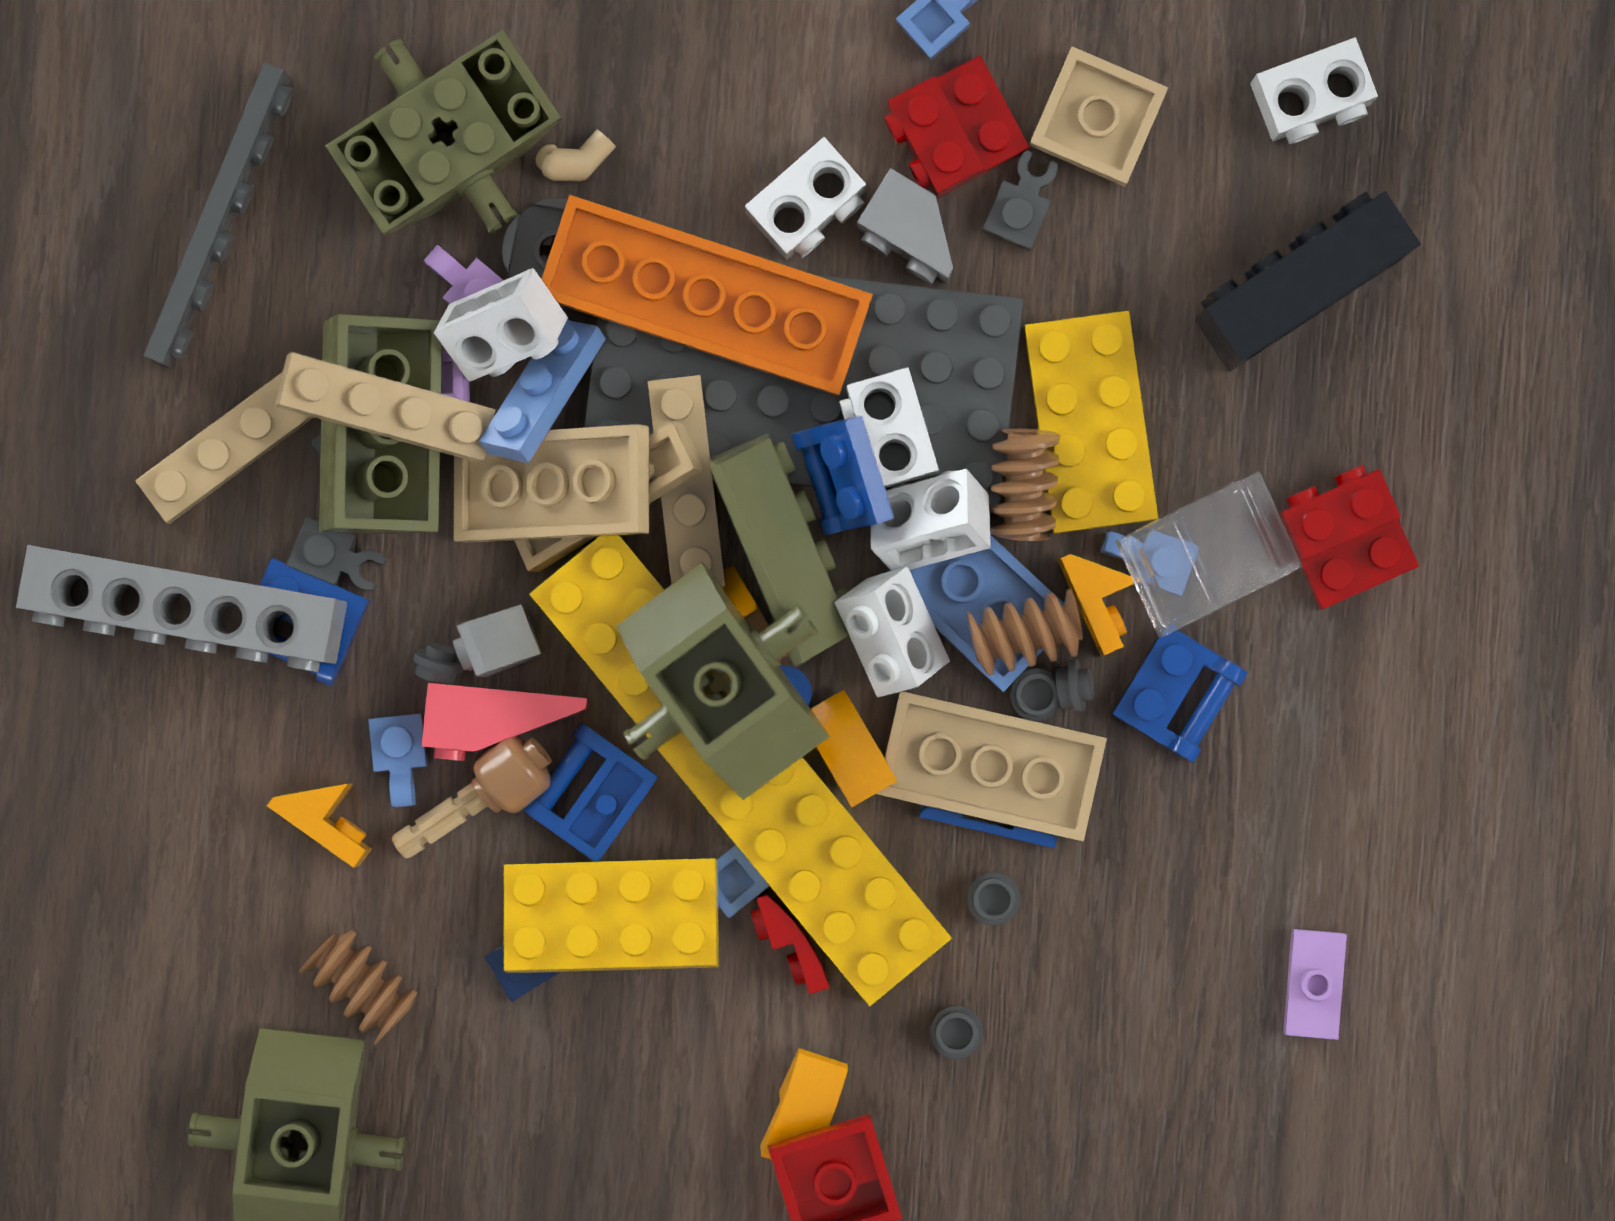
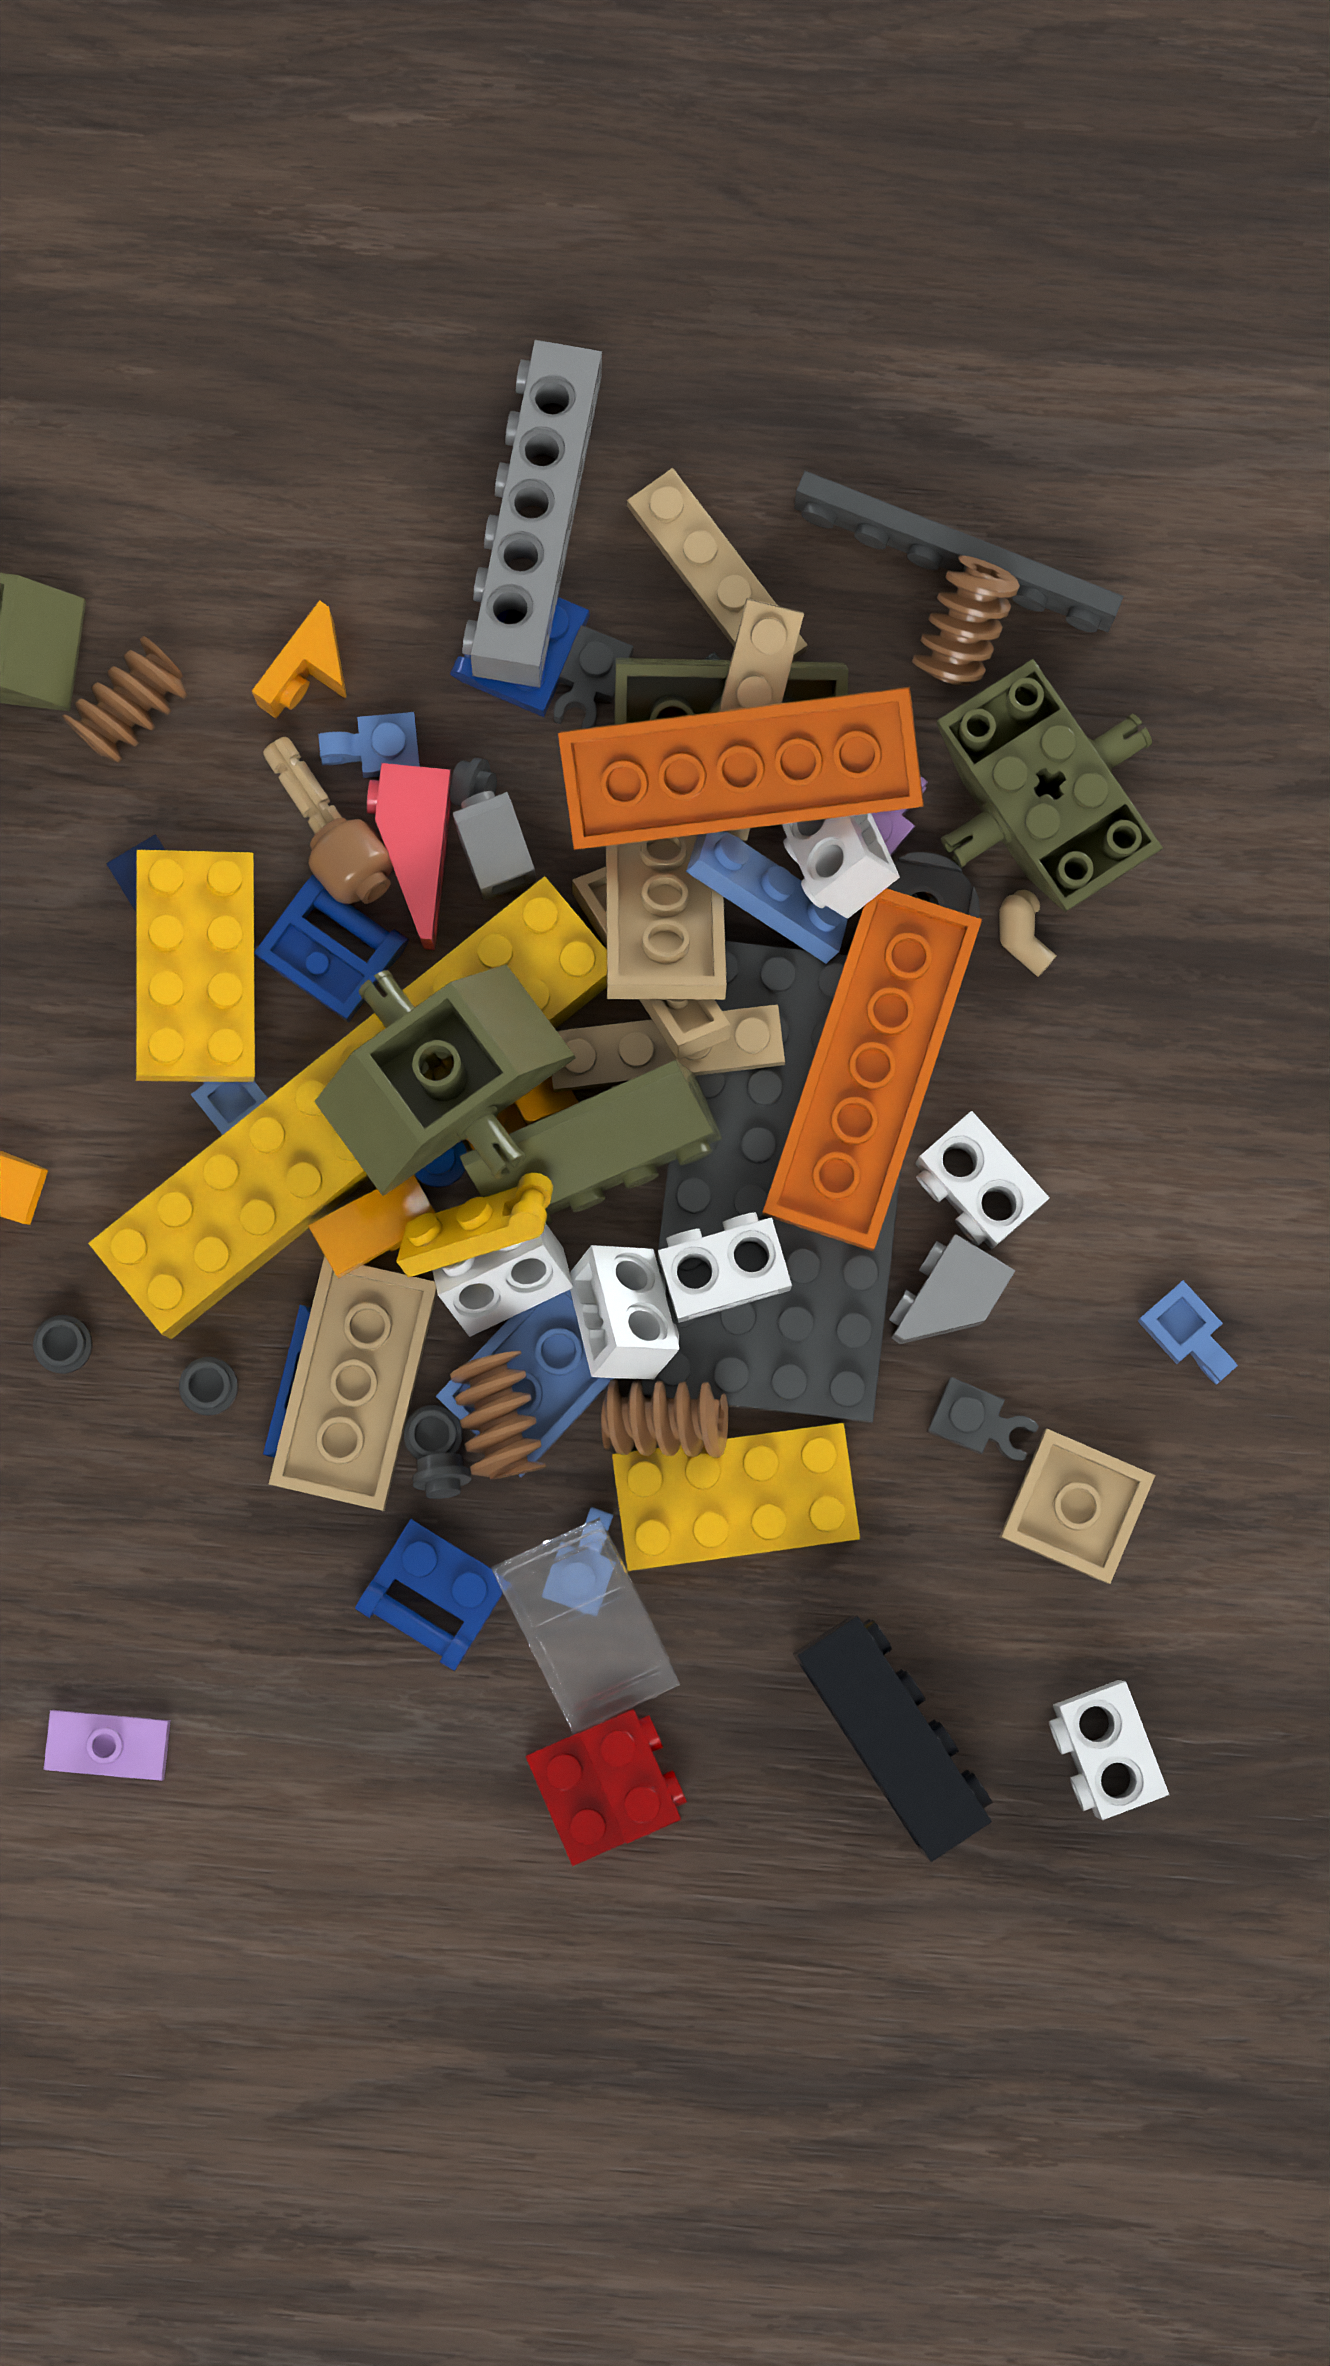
camera: 90 degrees right, 5 degrees down
(291, 203) = (969, 622): none -> medium nougat piece
(435, 410) = (741, 768): none -> orange plate
(780, 927) = (180, 1146): red slope -> none
(844, 475) = (673, 1216): blue plate -> none
(856, 651) = (476, 1226): none -> yellow plate
(955, 127) = (1063, 1346): red plate -> none
(1089, 585) = (552, 1492): light orange slope -> none

